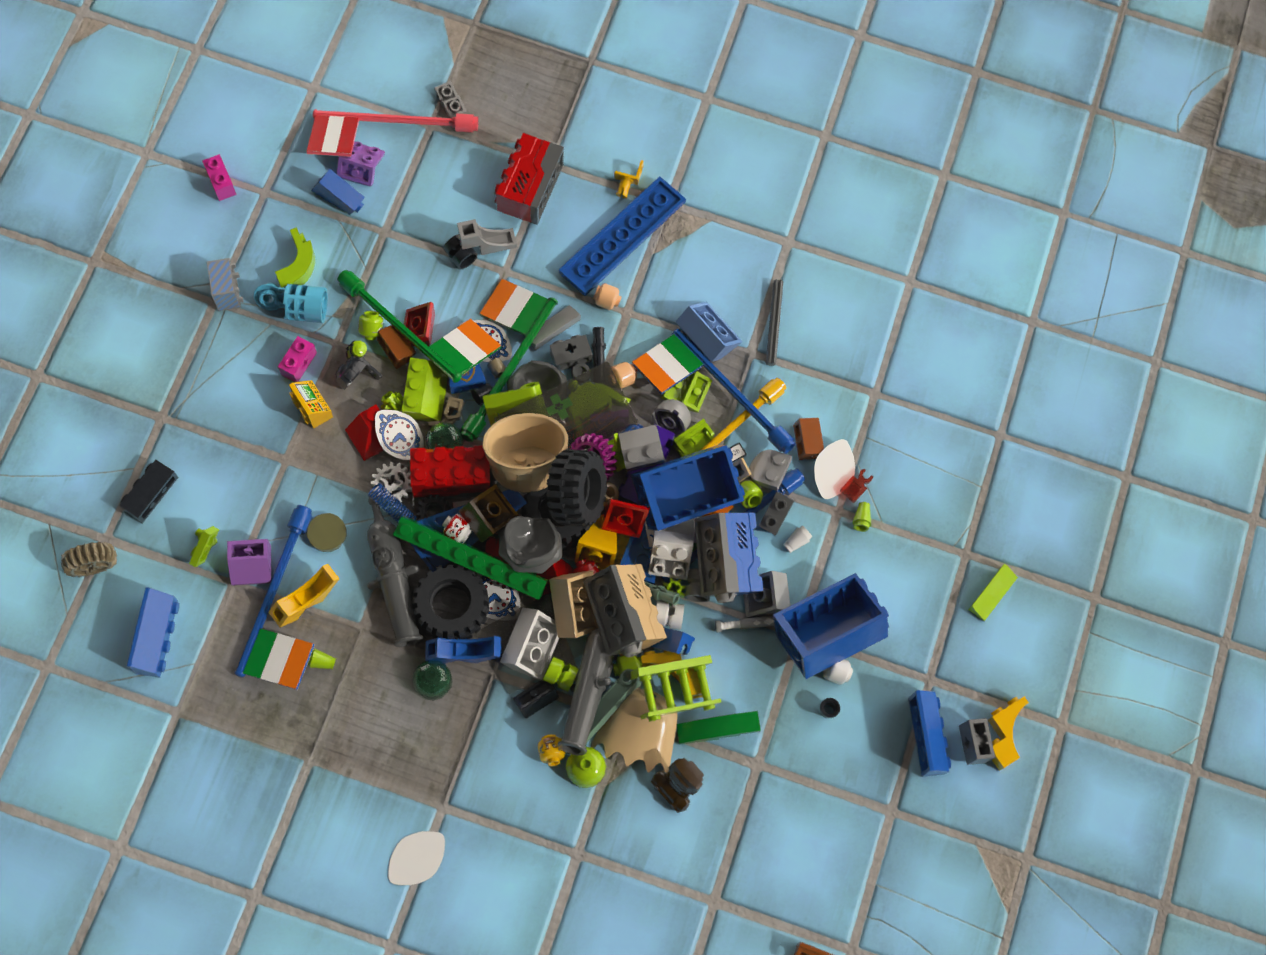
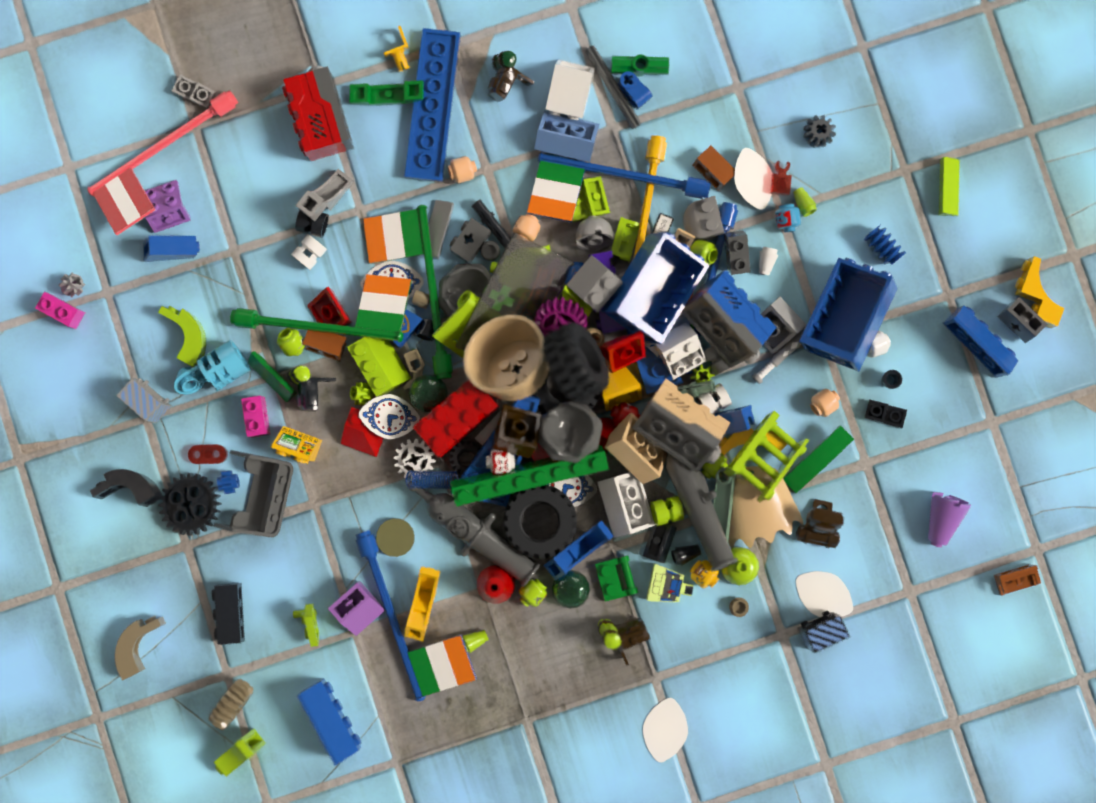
camera: 30 degrees left, 15 degrees up
(53, 454) = (126, 652): none -> dark tan arch
(63, 603) = (239, 753): none -> lime arch
(166, 348) = (142, 487): none -> black arch
(191, 386) = (206, 498): none -> black gear
(234, 392) = (228, 482): none -> blue gear
(236, 360) = (207, 454): none -> clear red plate
(243, 166) = (71, 285): none -> light grey gear
(255, 425) = (266, 496): none -> dark grey windscreen
(334, 340) = (271, 376): none -> green slope
(374, 630) = (495, 575): none -> red cone
(399, 658) = (533, 593): none -> lime head
(444, 747) = (623, 635): none -> dark brown piece
(447, 270) = (311, 245): none -> white wheel
(470, 696) = (610, 581): none -> green plate
(513, 735) = (667, 585): none -> torso
(548, 722) = (684, 554): none -> black cone
(558, 801) = (739, 607): none -> dark tan plate
(592, 203) = (387, 94): none -> green slope
(613, 871) = (823, 631): none -> black container
(639, 847) = (824, 592): none -> white sticker
(696, 251) = (505, 76): none -> dark brown piece
(738, 298) = (569, 89): none -> white slope
(759, 686) = (825, 402): none -> light nougat head
(789, 337) = (636, 91): none -> blue piece
(790, 857) = (945, 517): none -> medium lavender cone
(804, 735) = (885, 414): none -> black slope
(816, 327) = (653, 65): none -> green piece
(839, 518) = (788, 217): none -> dark azure head
(901, 596) = (884, 245): none -> blue piece
(919, 466) = (816, 124): none -> dark grey gear

